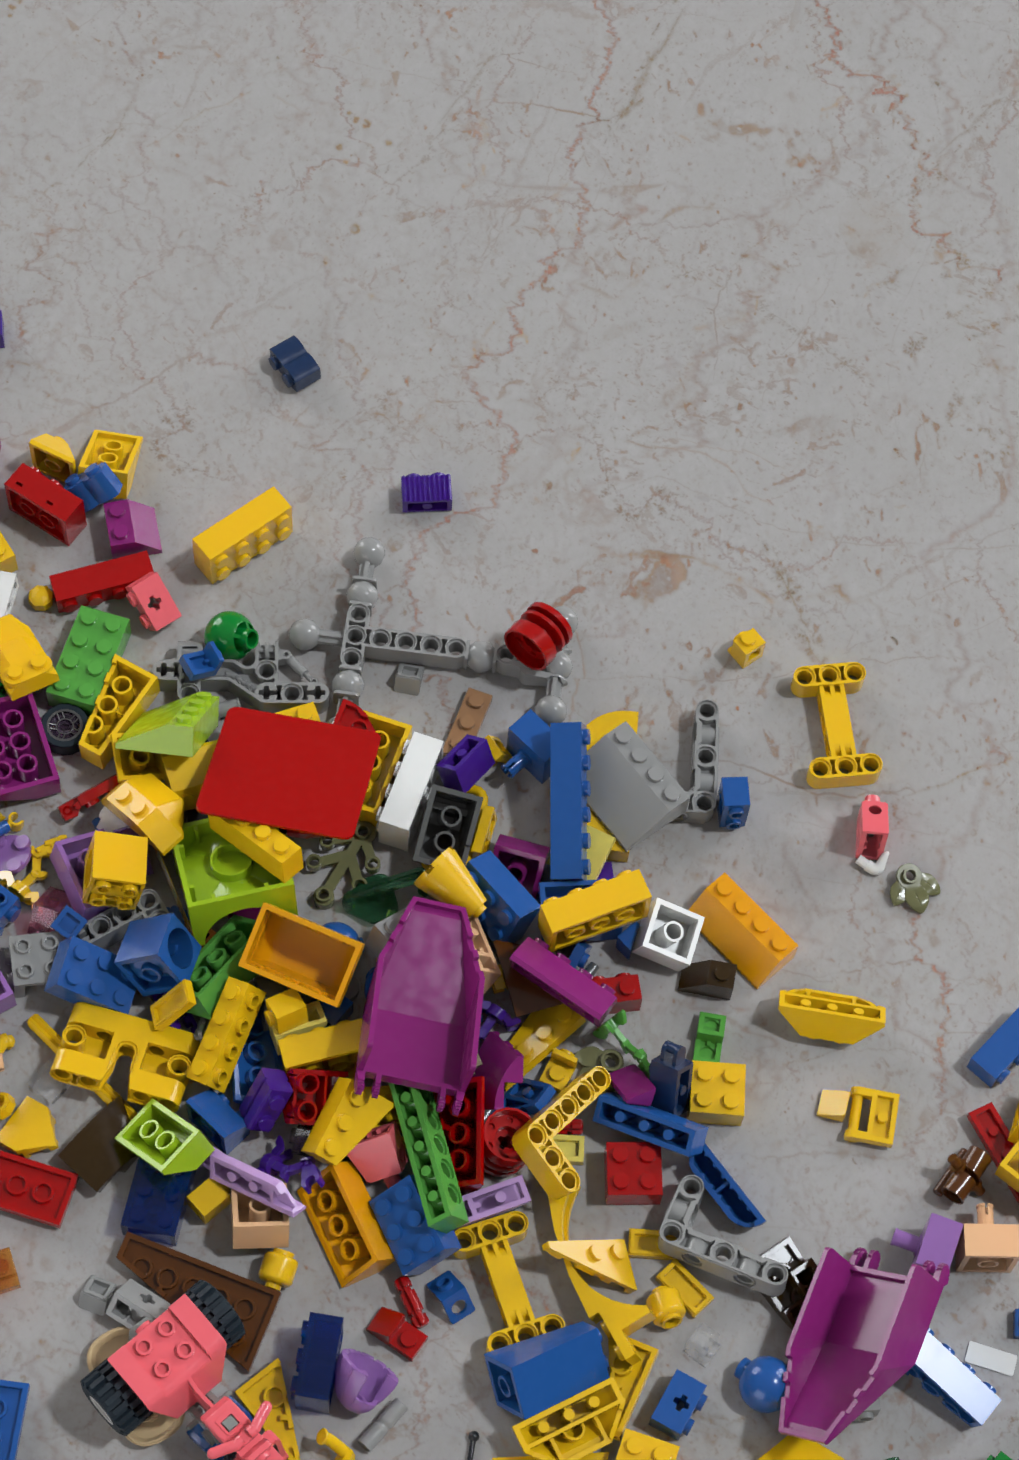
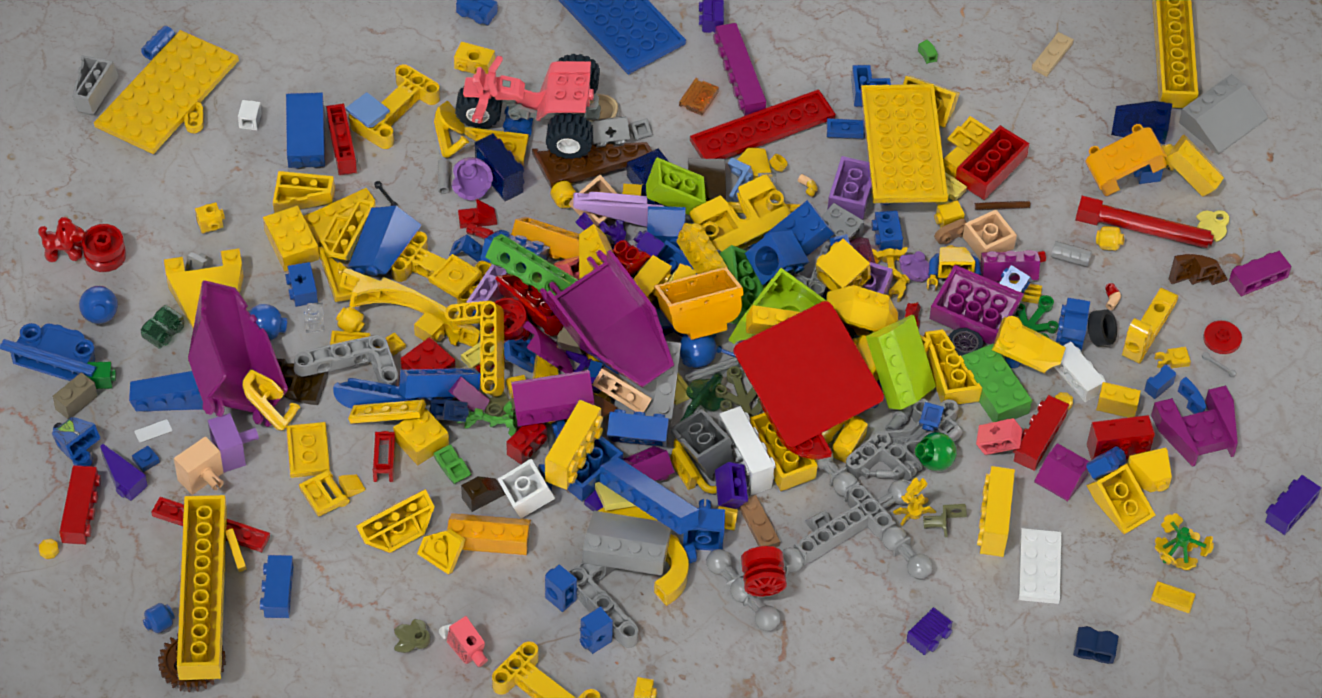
camera: 140 degrees right, 10 degrees down
(59, 1117) = (741, 170): none -> medium blue bracket
(119, 367) = (1185, 538): none -> yellow plant
(172, 352) = (1173, 597): none -> yellow tile
(173, 1005) = (742, 242): yellow tile -> none
(254, 471) = (1040, 566): none -> white plate
(295, 579) = (941, 521): none -> olive bracket
(306, 607) = (915, 508): none -> yellow piece
(327, 915) = (709, 371): none -> light grey axle
(452, 883) = (663, 399): yellow cone -> none
(509, 1250) = (455, 276): none -> yellow tile
(589, 1219) = (429, 326): none -> yellow brick
(597, 1258) = (405, 312): yellow wing -> none
(731, 1145) = (387, 411): none -> yellow tile
(740, 733) = (596, 630): none -> blue brick
(774, 1104) = (384, 454): none -> red window
(810, 941) = (442, 549): none -> yellow plate
(843, 1188) = (307, 449): none -> yellow tile
(853, 1256) = (259, 390): none -> yellow piece
(963, 1175) = (244, 498): reddish brown pin -> none

